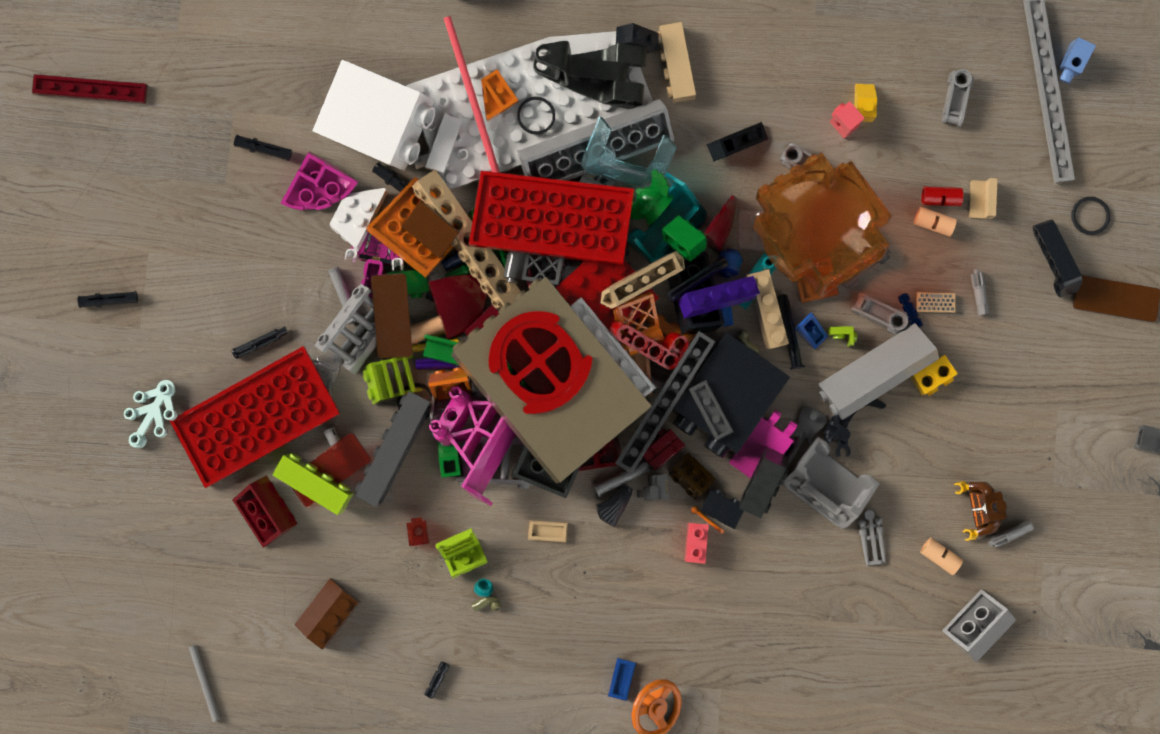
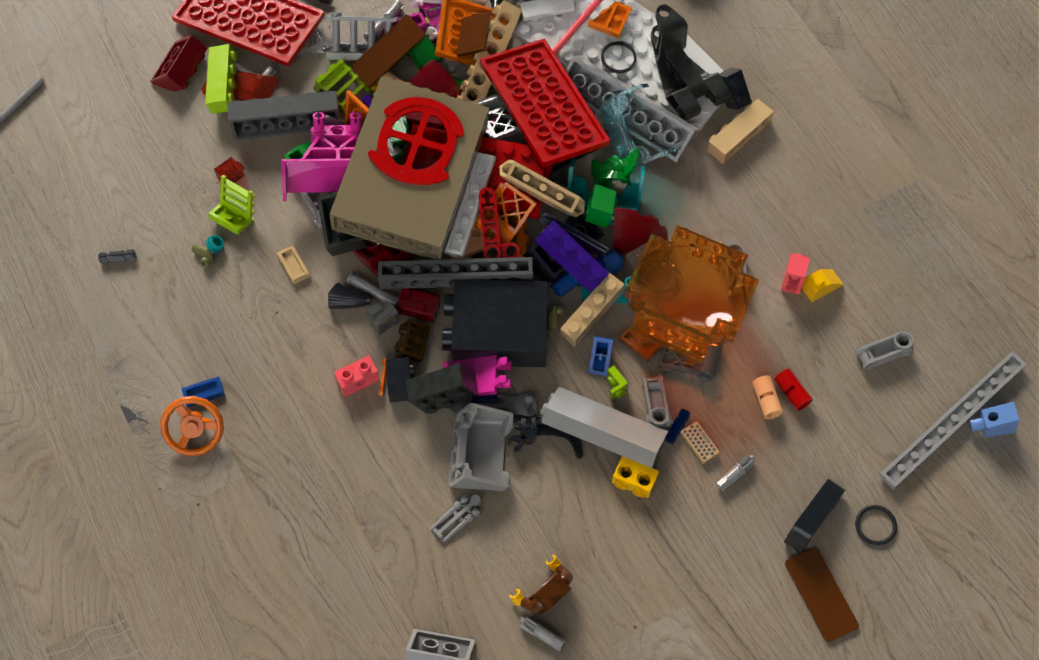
camera: 60 degrees right, 20 degrees down
(327, 614) = (122, 152): reddish brown slope -> none
(451, 261) = (460, 73): dark blue pin -> none
(711, 410) = (472, 306): dark grey tile -> none
(737, 141) = (713, 209): black slope -> none
(793, 347) = (586, 344): black axle -> none
(941, 556) = (480, 583): light nougat pin -> none
(983, 199) = (818, 425): tan panel -> none

